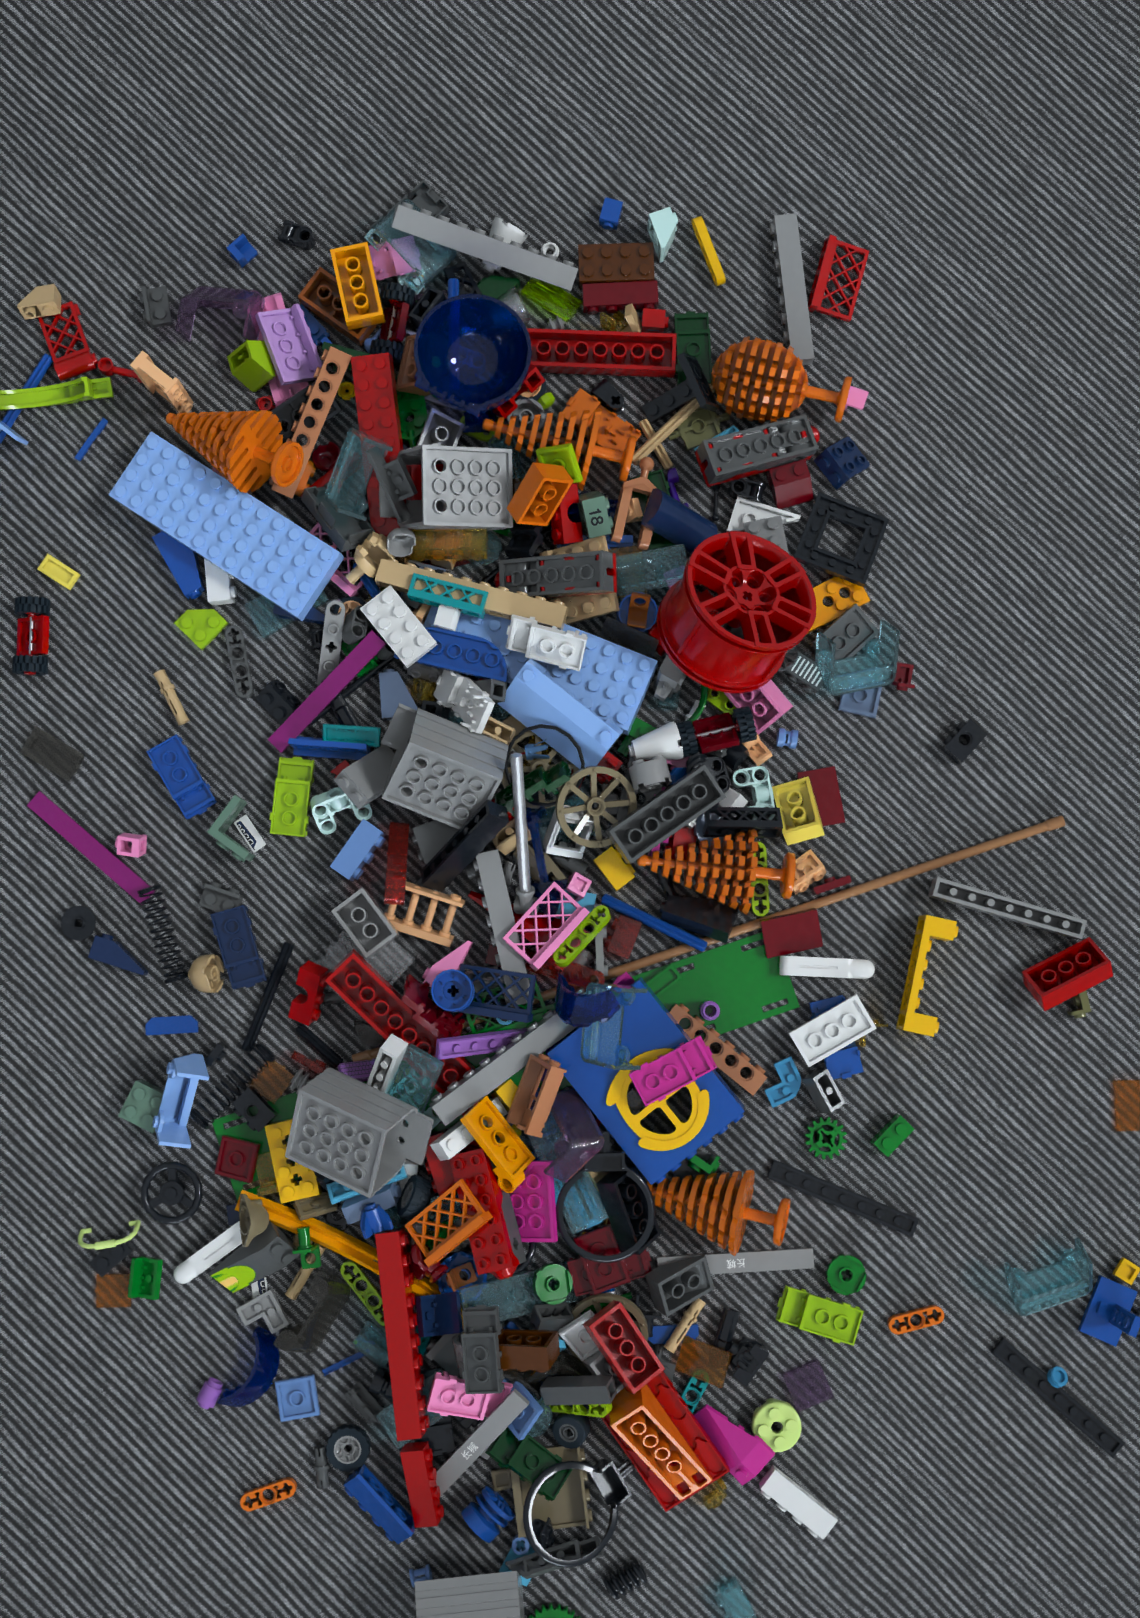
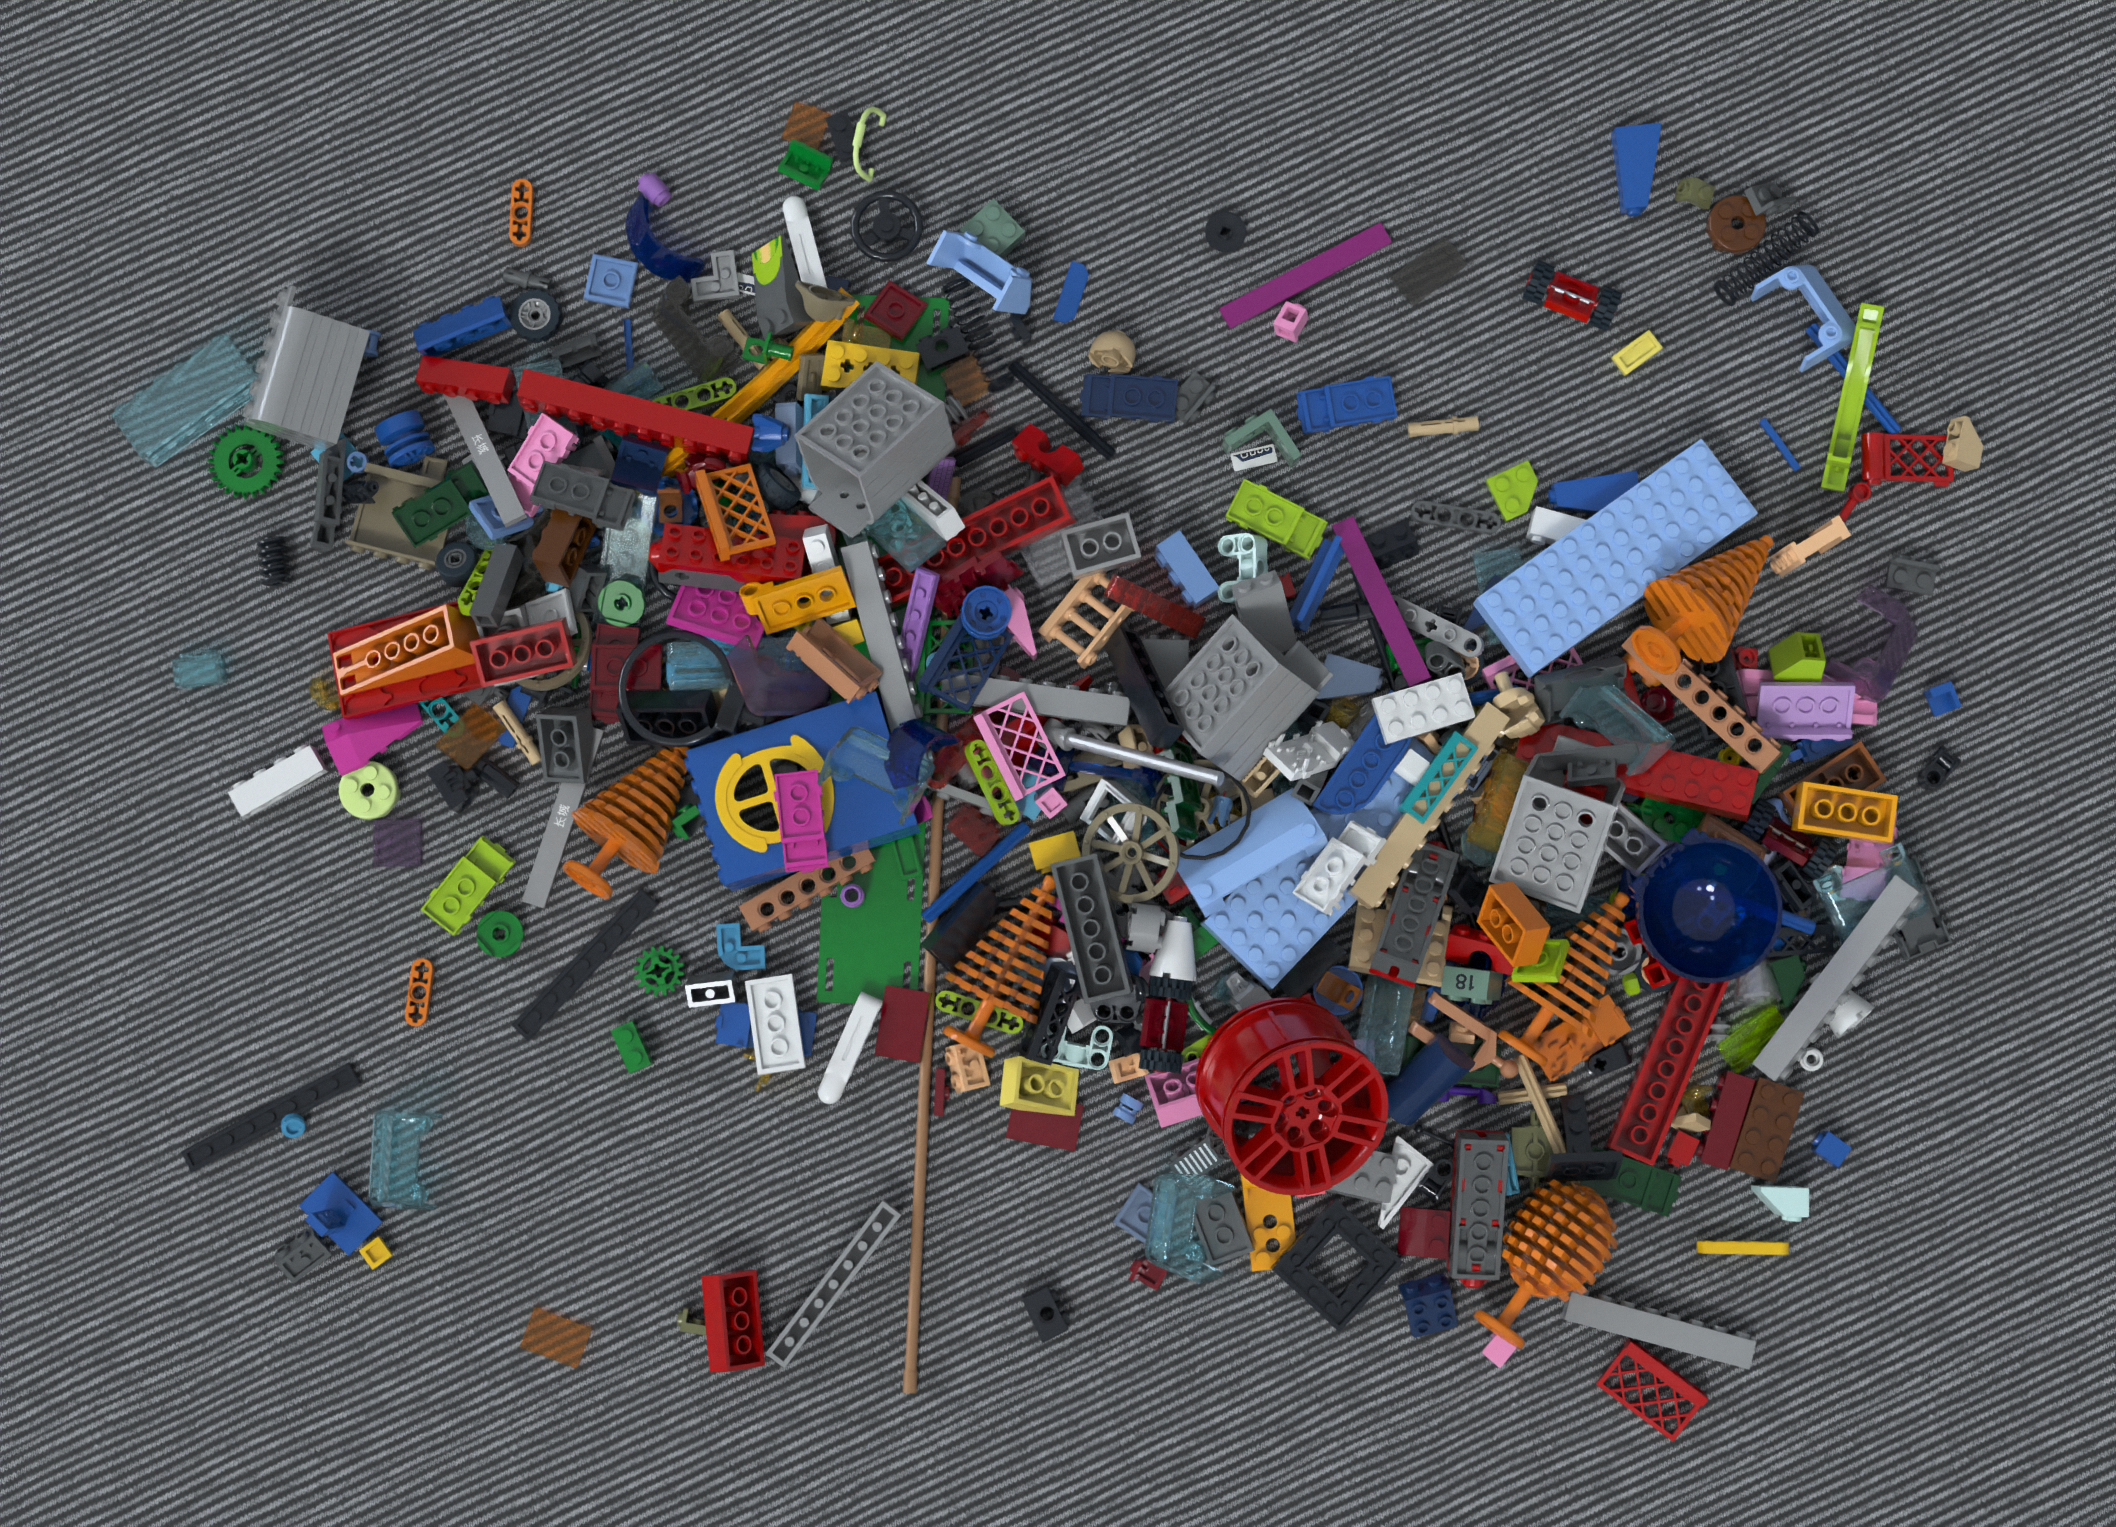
camera: 115 degrees right, 0 degrees up
(113, 953) = (1177, 257): dark blue slope -> none
(184, 974) = (1231, 315): black piece -> none
(352, 734) = (1320, 611): teal plate -> none
(401, 542) = (1519, 746): light grey hair -> none
(611, 1487) = (382, 582): black brick -> none
(926, 928) = (749, 1121): yellow plate -> none

